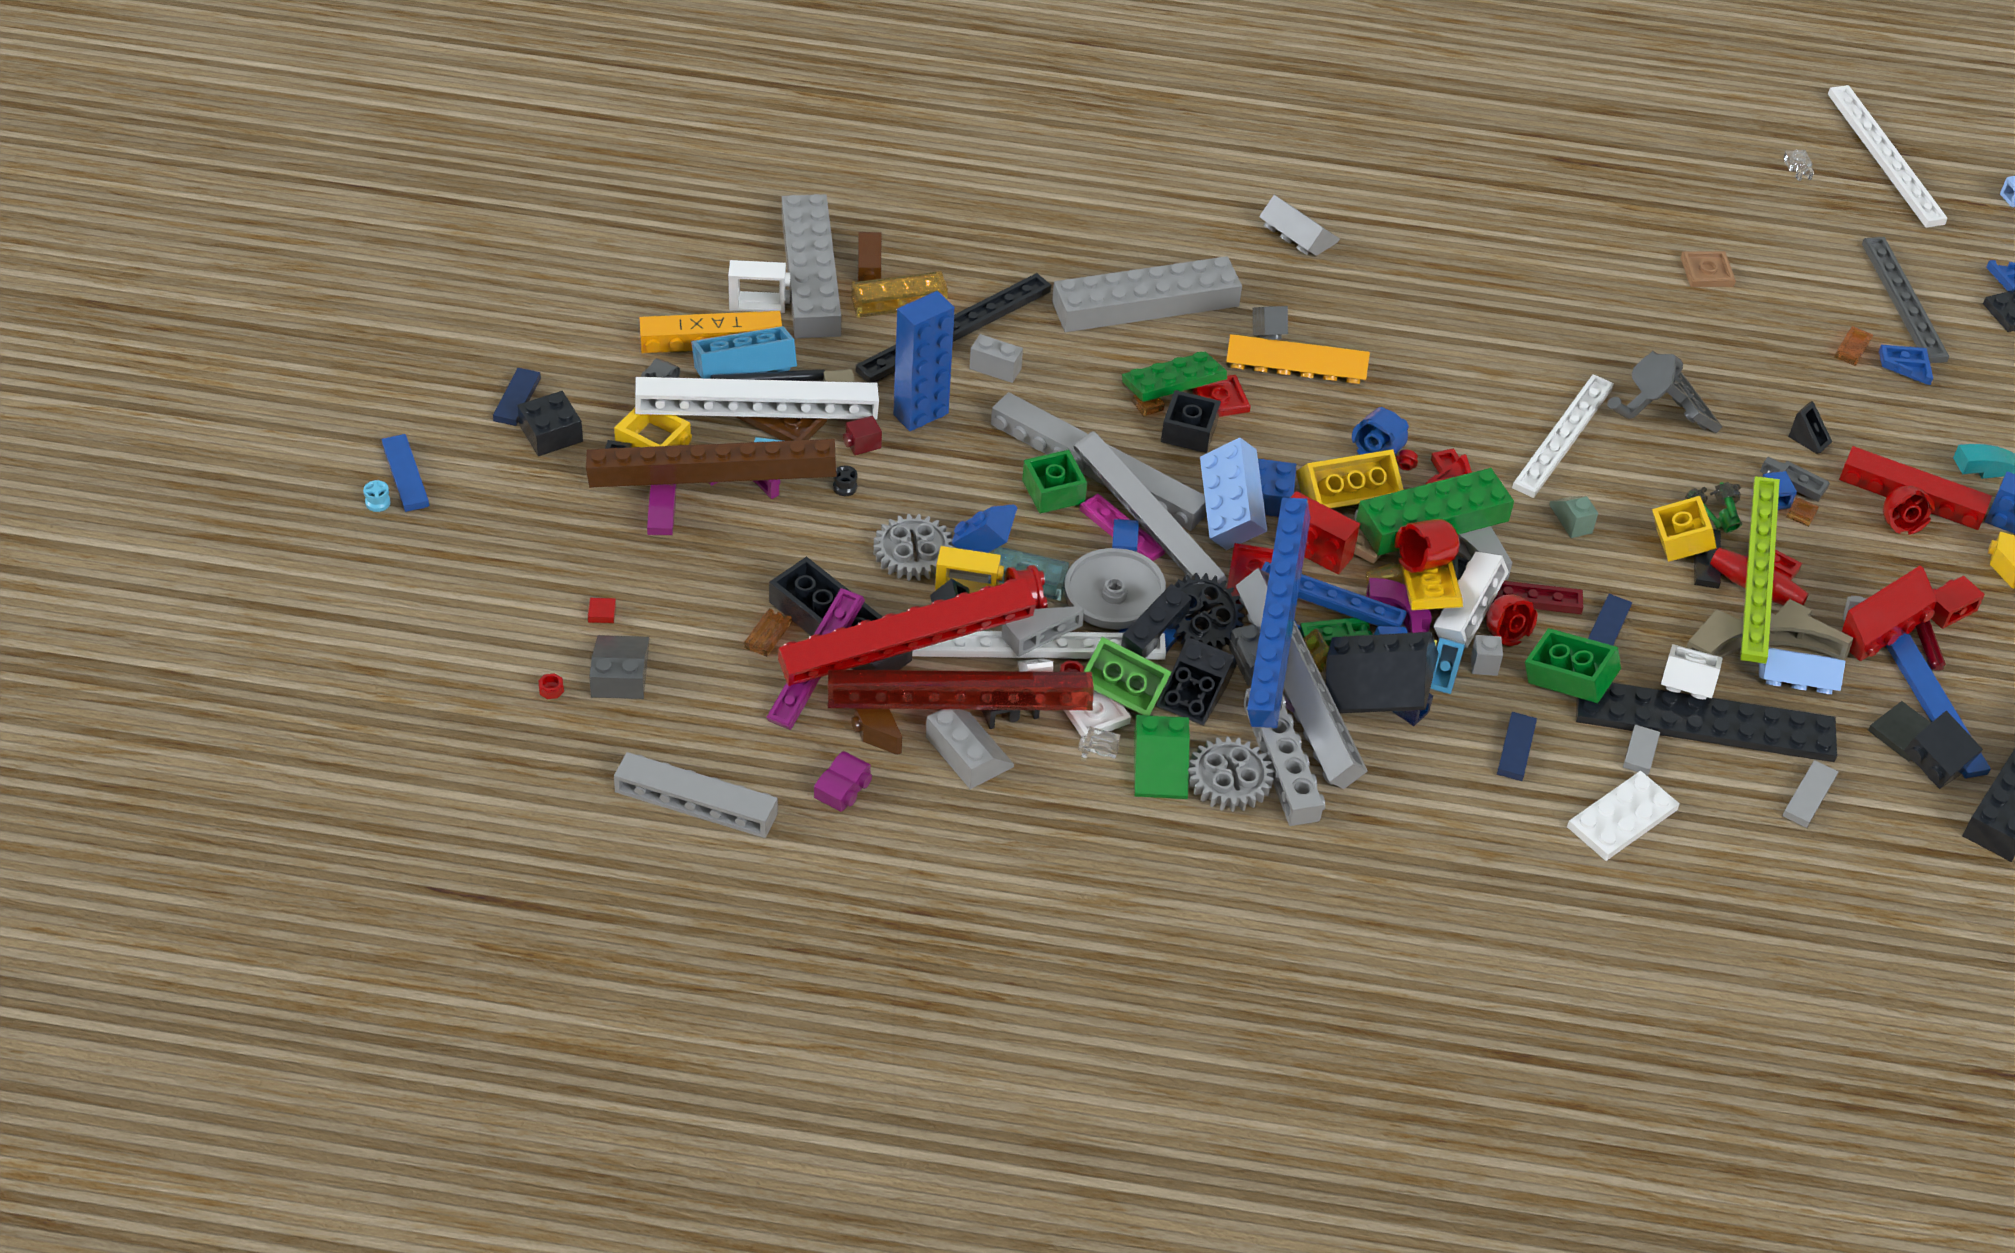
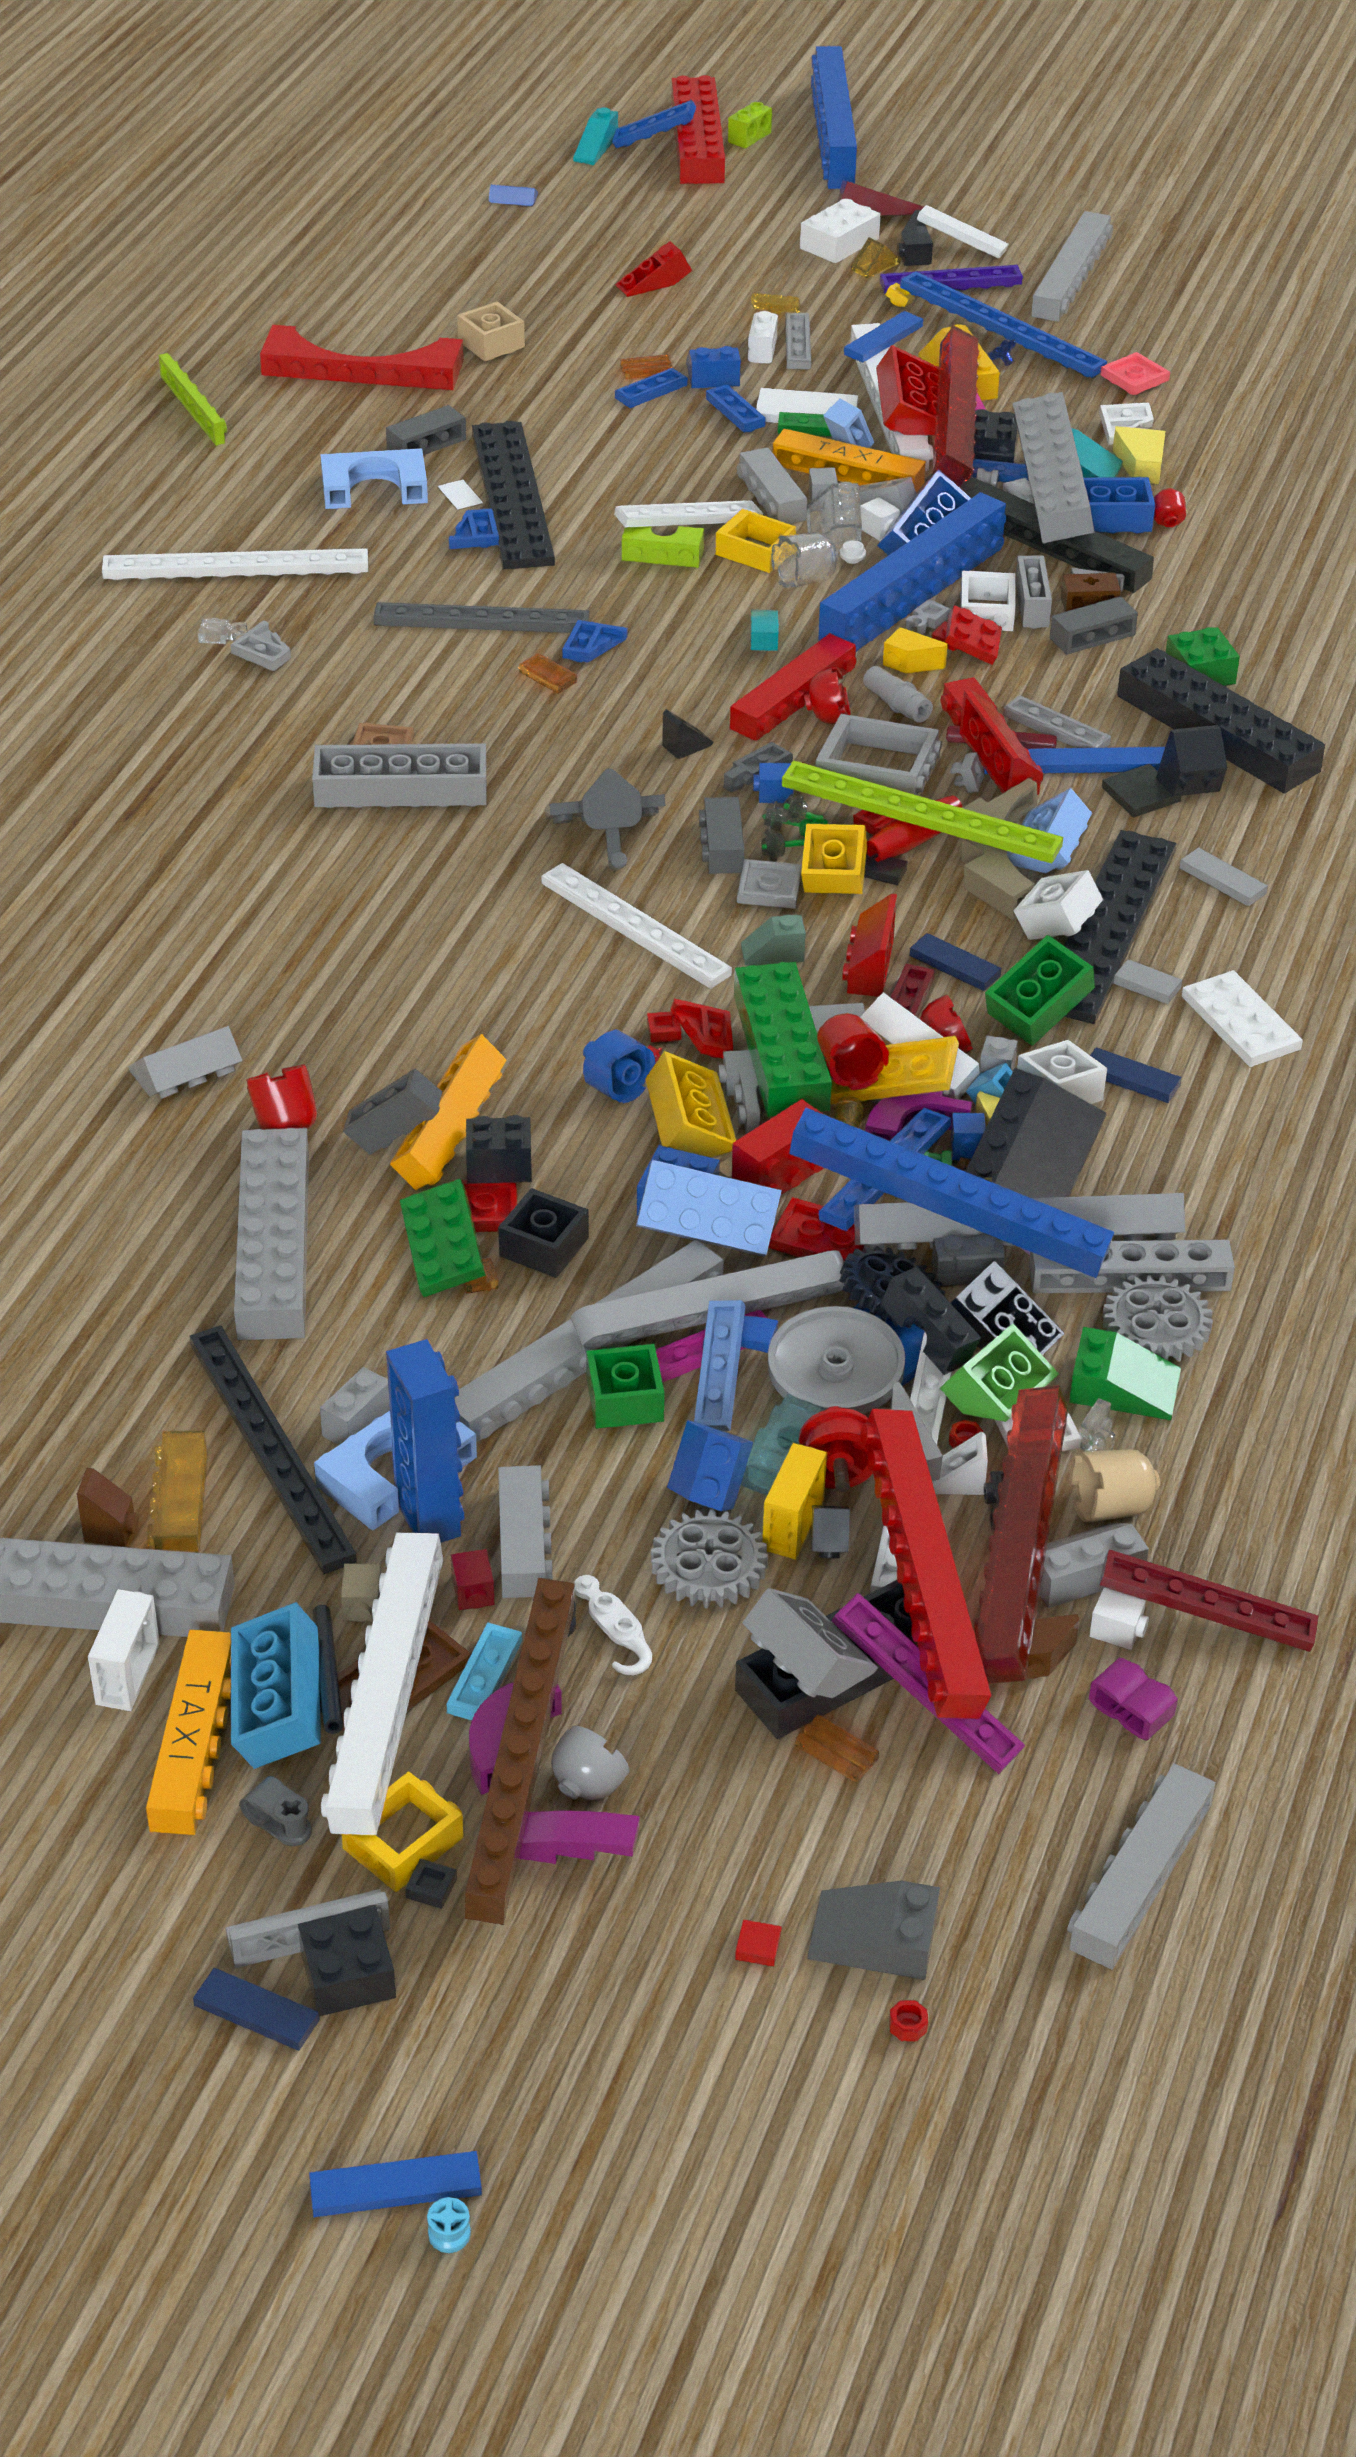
camera: 75 degrees left, 5 degrees down
(592, 426) = (279, 1934): none -> light grey fence
(713, 503) = (586, 1766): none -> light grey cylinder
(817, 580) = (807, 1644): none -> light grey slope
(848, 511) = (616, 1622): none -> white piece
(912, 452) = (522, 1530): none -> light grey brick
(914, 767) = (1118, 1619): none -> white brick
(936, 813) = (1209, 1600): none -> dark red plate
(988, 384) = (358, 1488): none -> light blue arch
(1036, 749) = (1113, 1484): none -> tan cylinder
(1086, 524) = (720, 1364): none -> medium blue plate
(1265, 271) = (284, 1099): none -> red cylinder
(1266, 387) = (498, 1149): none -> black brick
(1478, 691) = (1068, 1068): none -> white brick
(1587, 568) = (871, 949): none -> red slope
(1642, 498) = (769, 883): none -> light grey plate
(1664, 277) = (399, 775): none -> light grey brick
(1692, 467) = (722, 835): none -> dark grey brick
(1790, 186) = (262, 647): none -> light grey wing
(1843, 518) = (886, 736): none -> light grey window
(1941, 554) = (898, 694): none -> light grey piece
(1968, 667) = (1054, 723): none -> light grey tile

